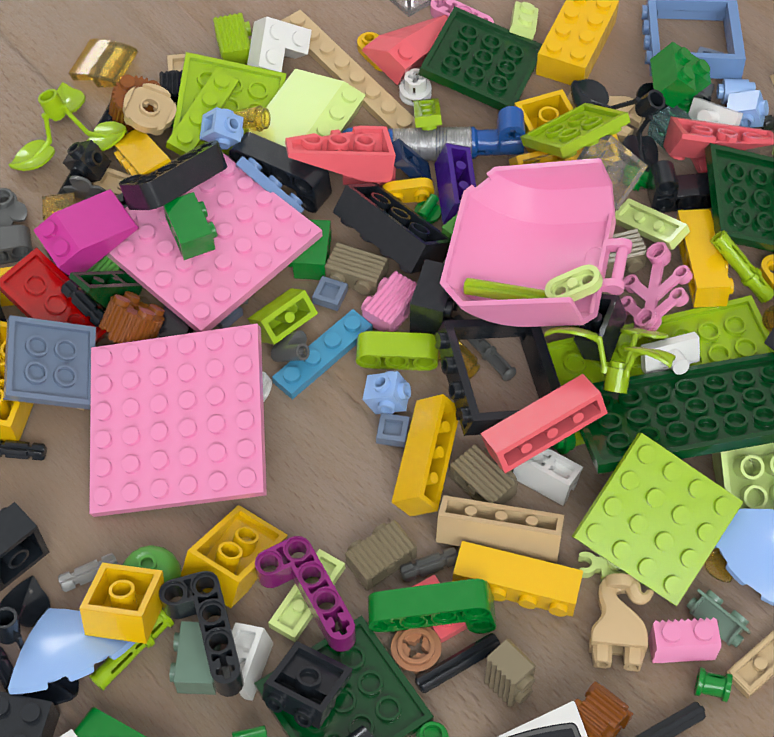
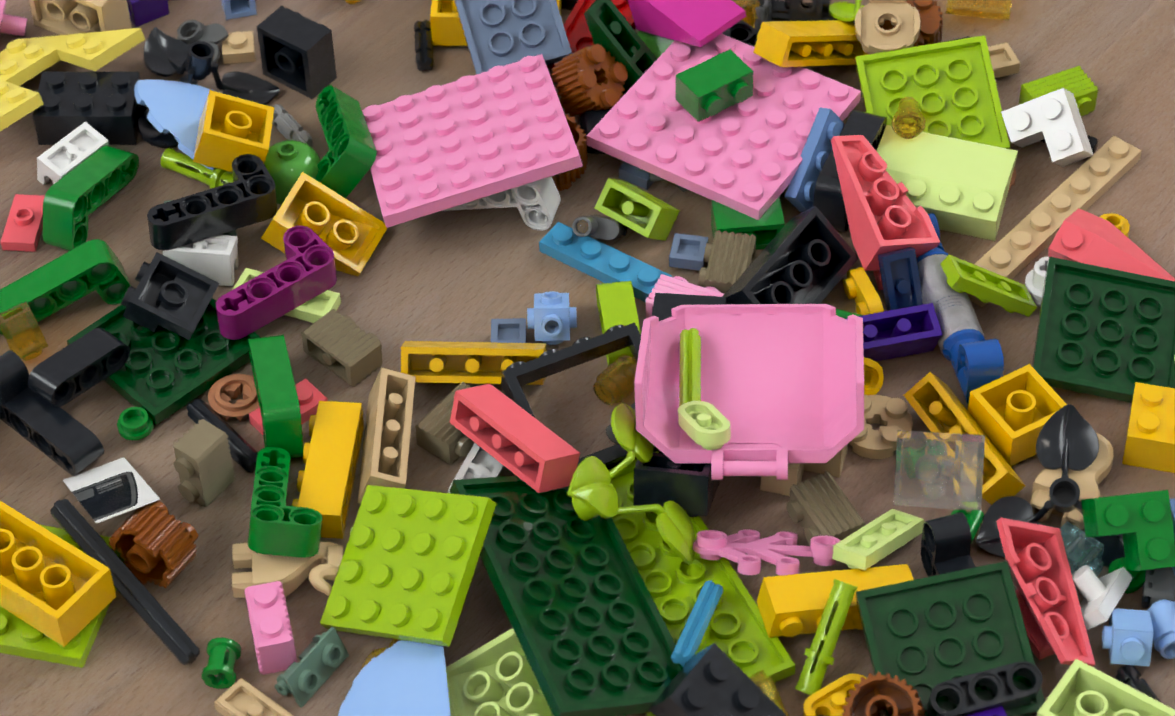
camera: 80 degrees right, 10 degrees down
(129, 523) = (348, 140): none -> green beam
(174, 178) = (774, 56): black beam -> none
(213, 95) = (901, 74): lime plate -> none
(222, 126) = (876, 78): light blue brick -> none
(428, 564) = (336, 387): dark grey axle -> none
(556, 620) = (272, 524): none -> green beam
(575, 130) = (970, 405): lime plate -> none
(684, 346) = (662, 568): white tile -> none
(726, 340) = (697, 623): none -> dark azure axle

